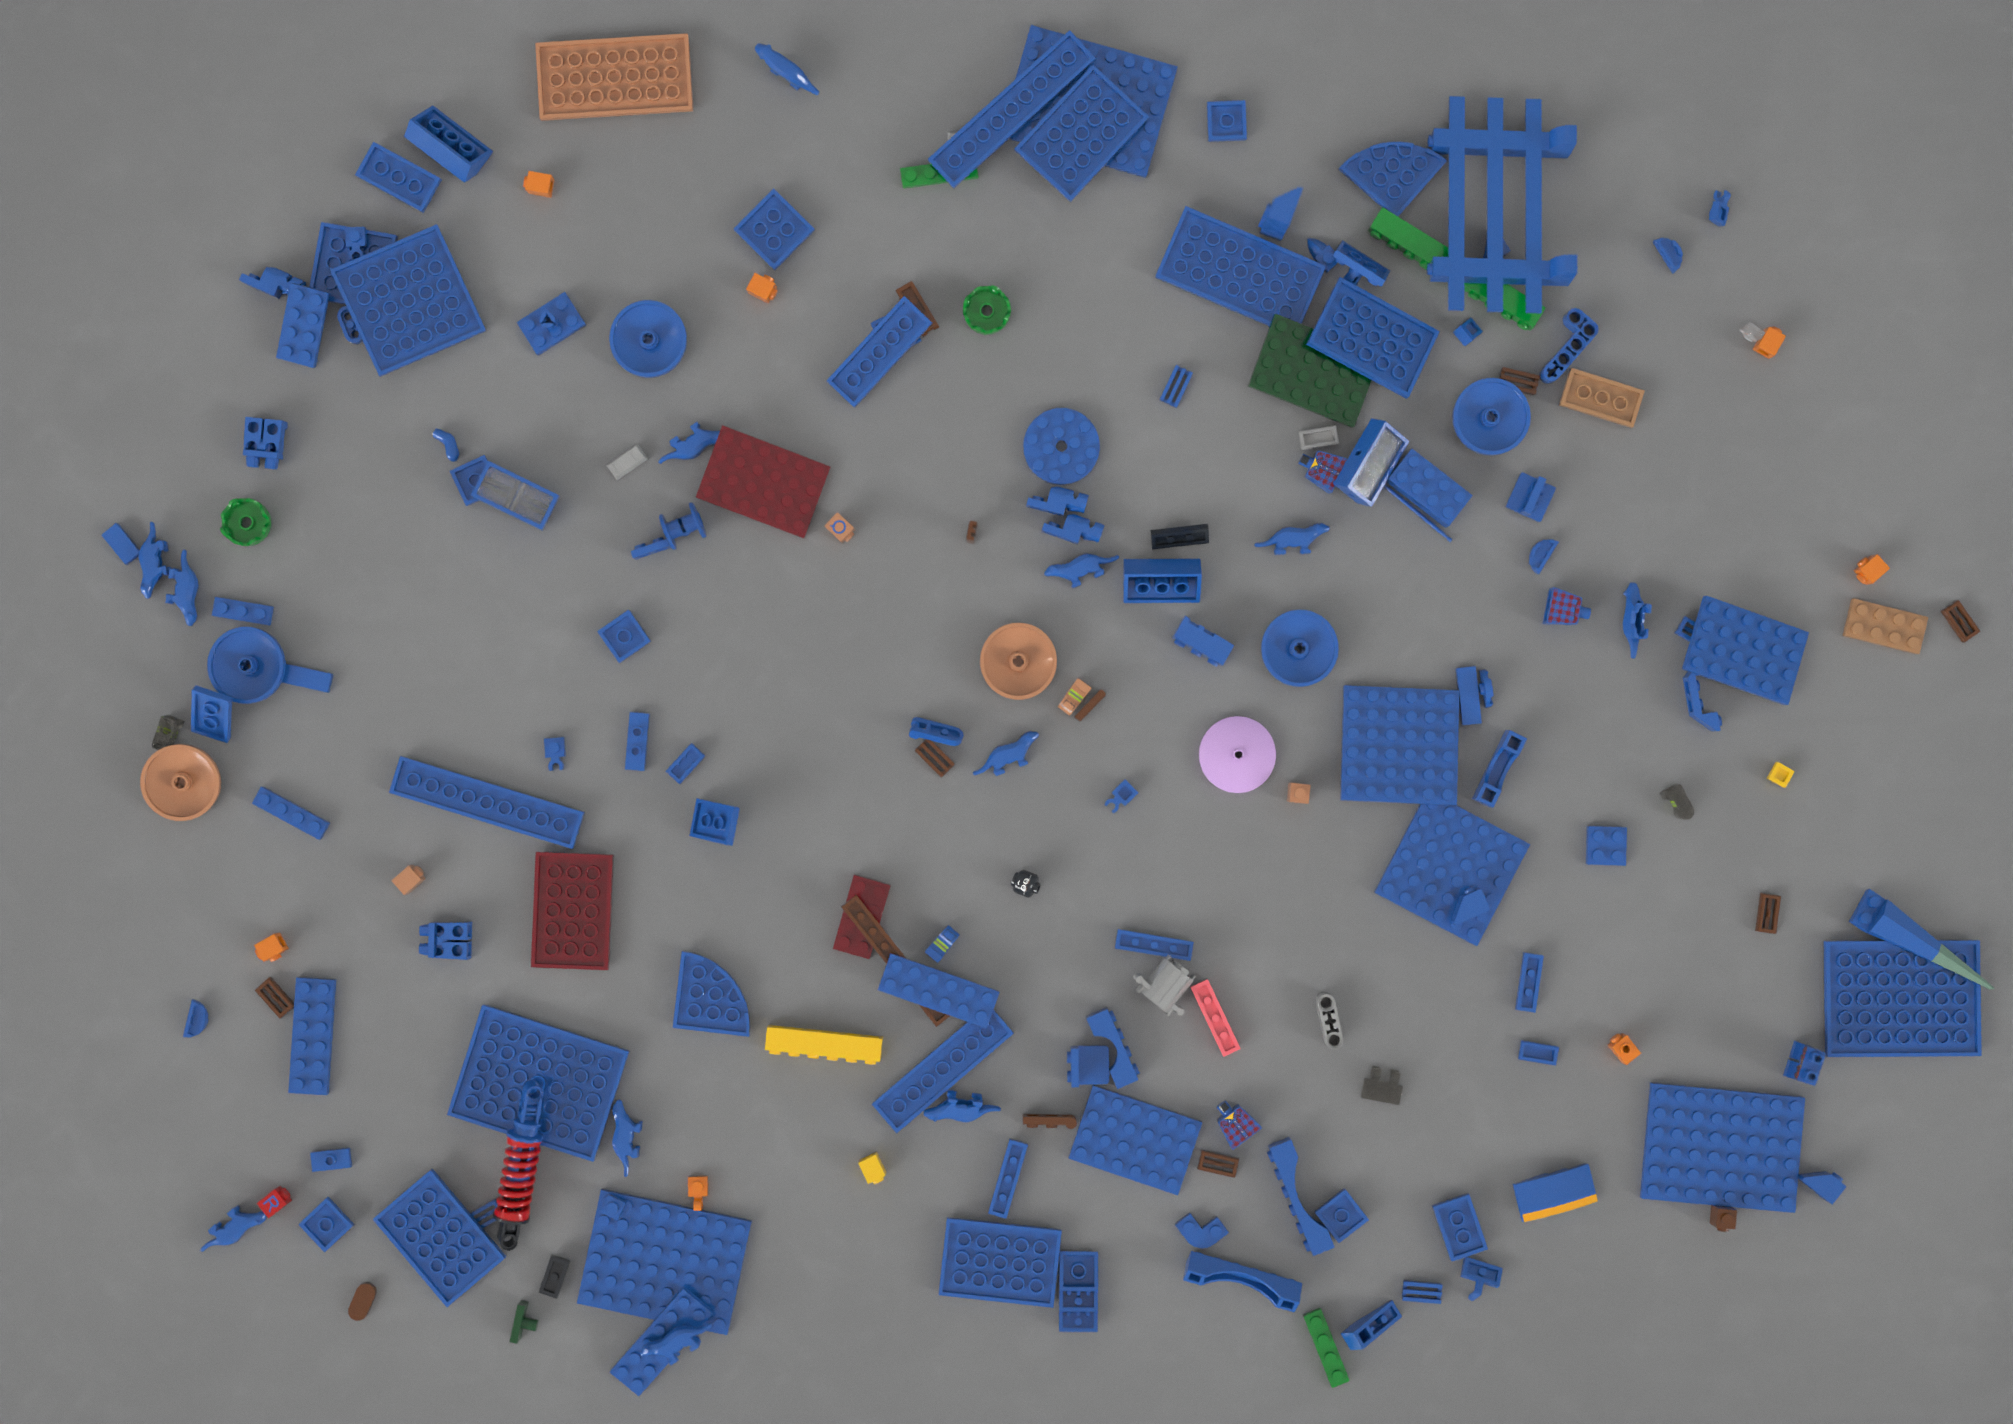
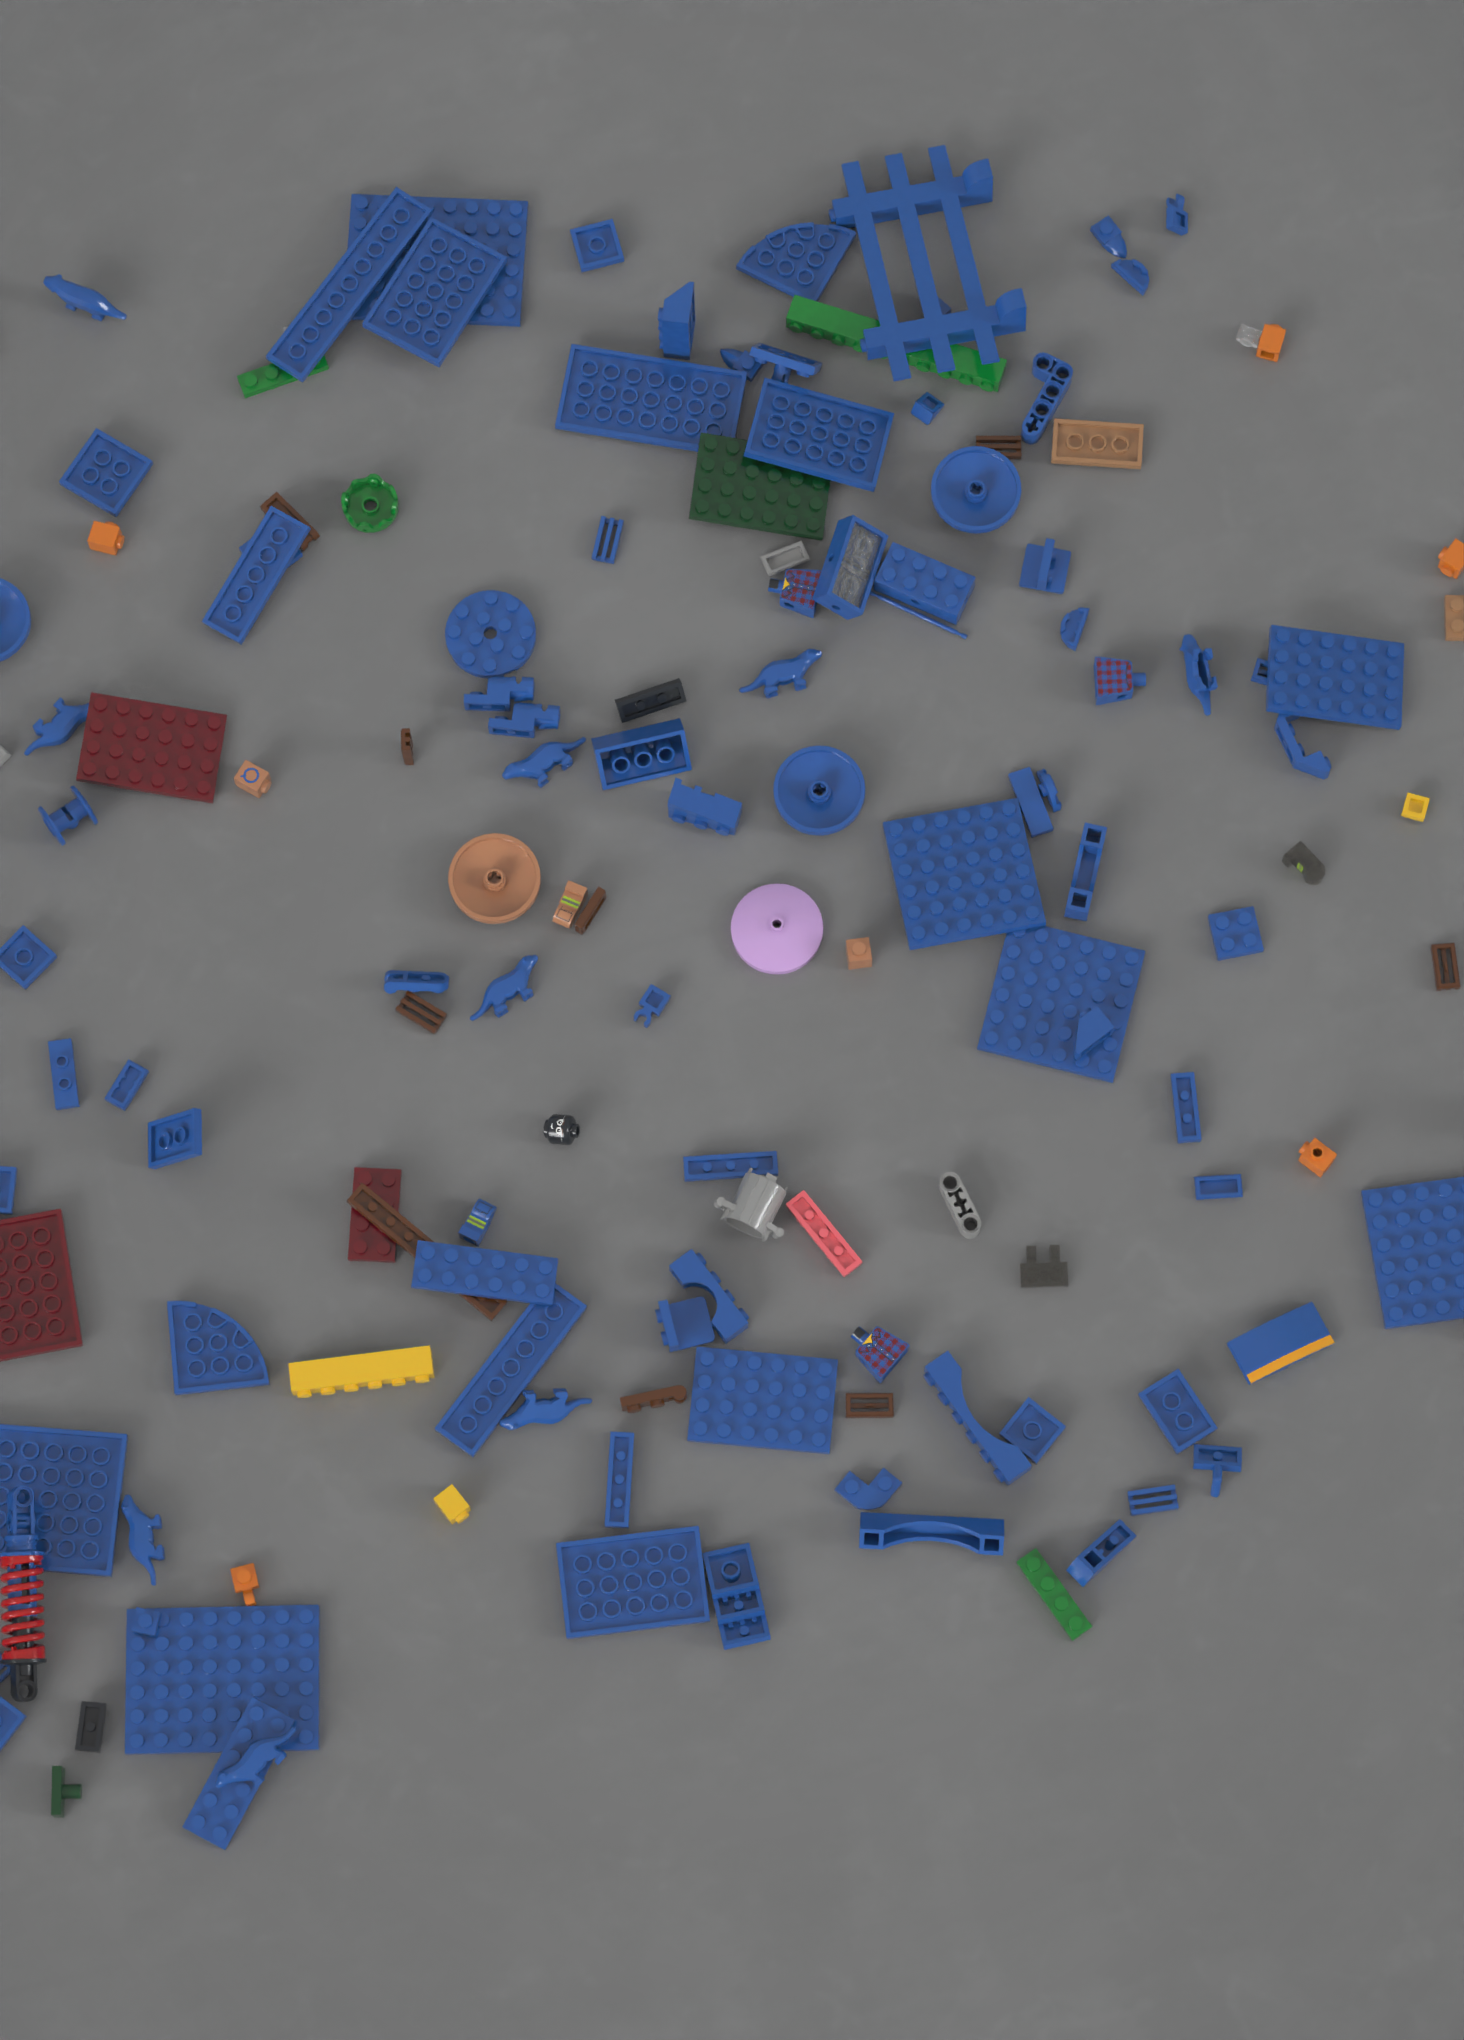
camera: 15 degrees left, 15 degrees down
(642, 550) = (28, 855): blue plate -> none
(1658, 214) = (1110, 237): none -> blue plate

